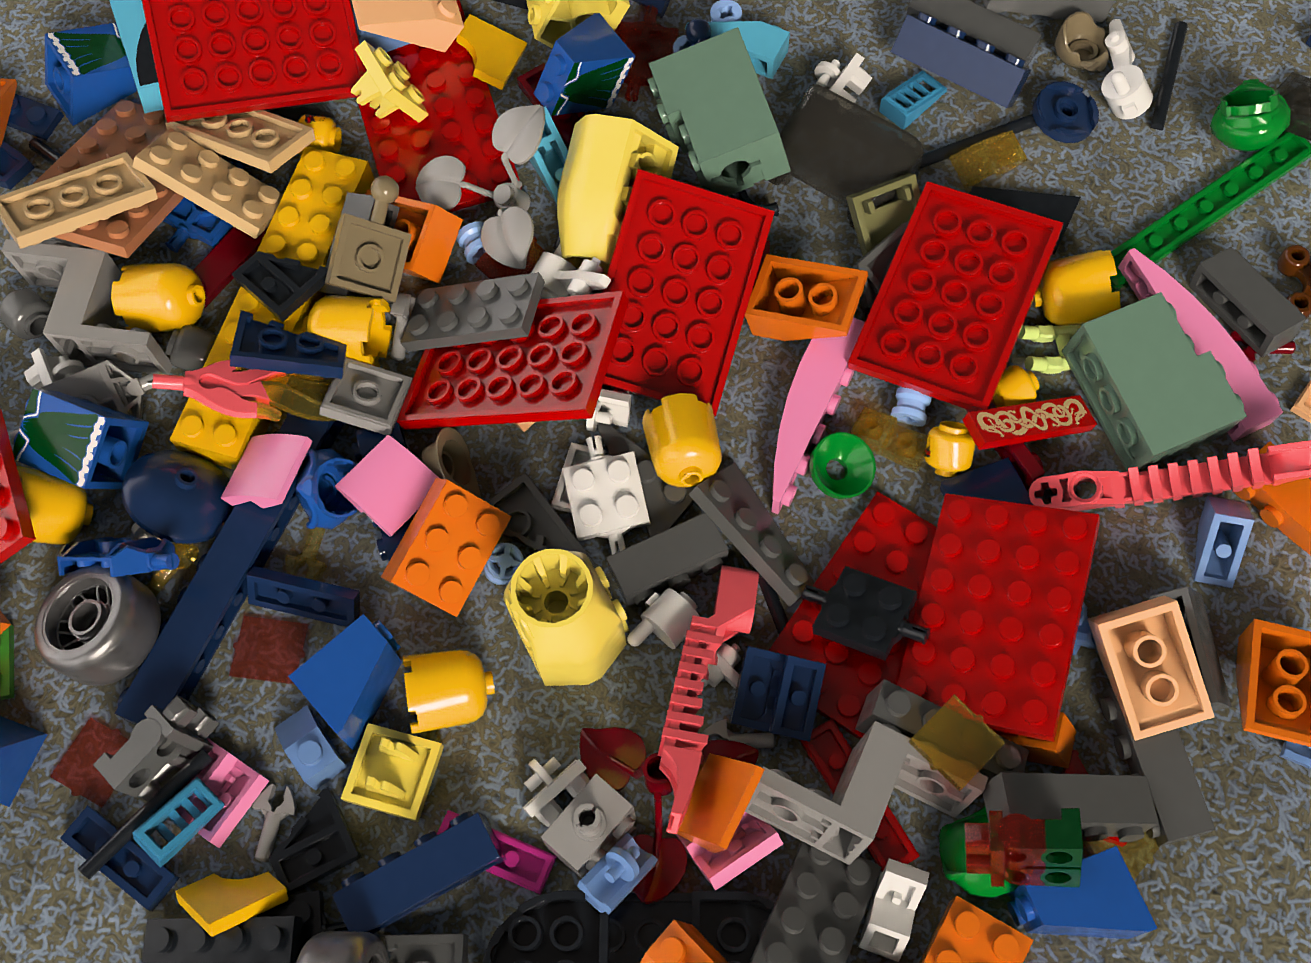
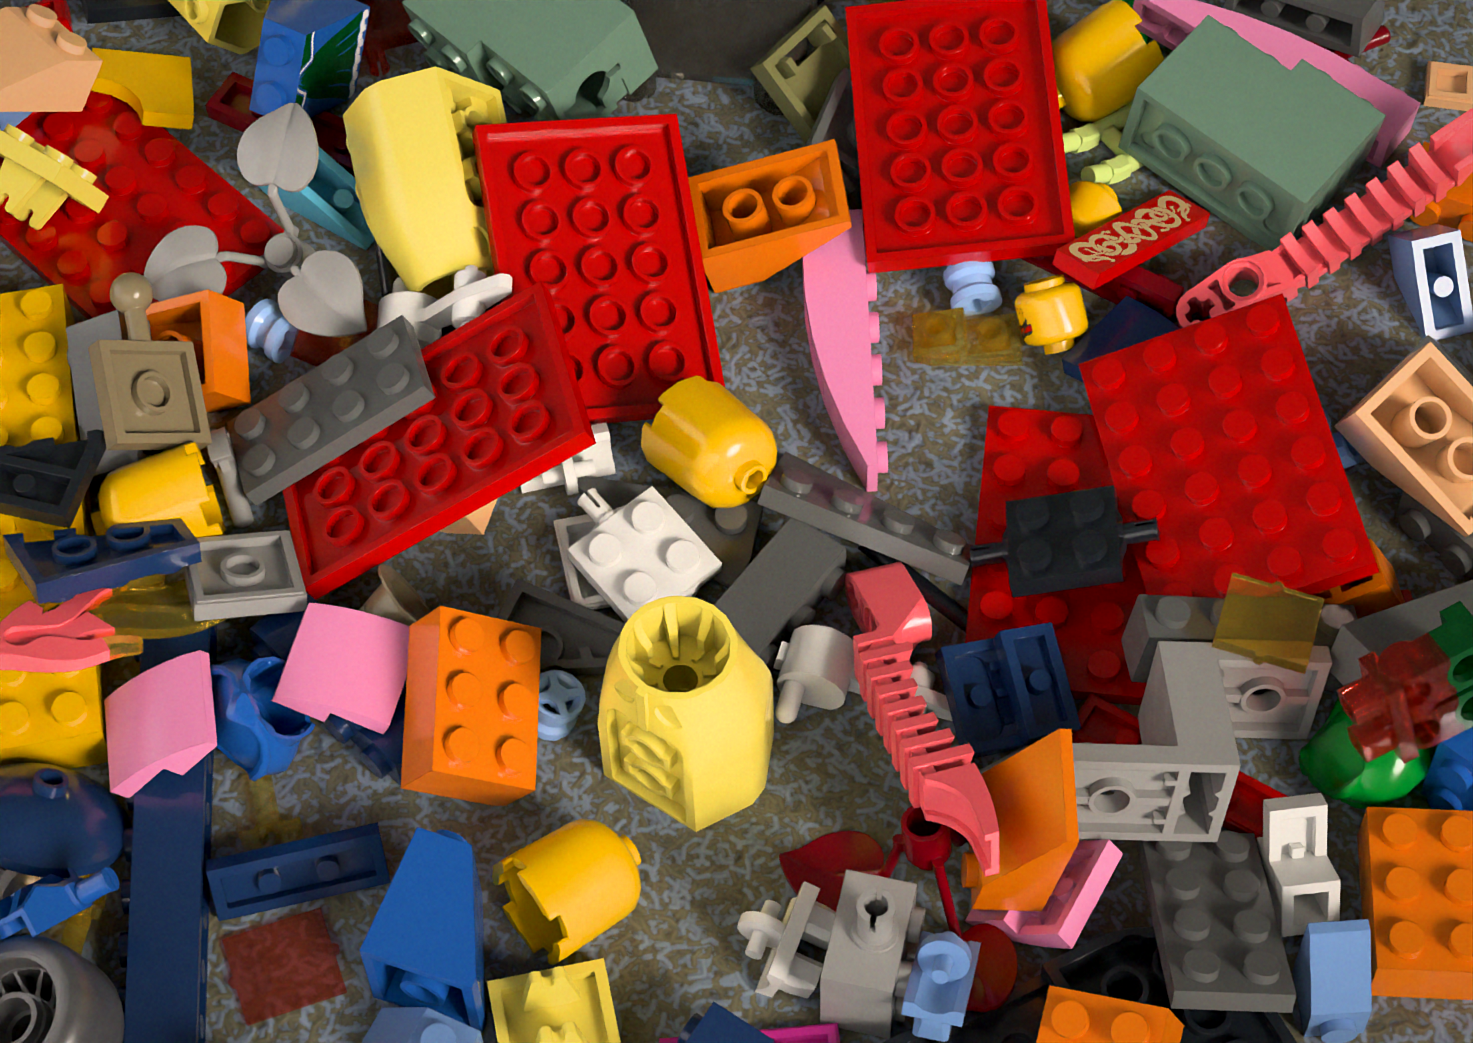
camera: 30 degrees left, 10 degrees down
(852, 455) = (937, 378): green piece -> none

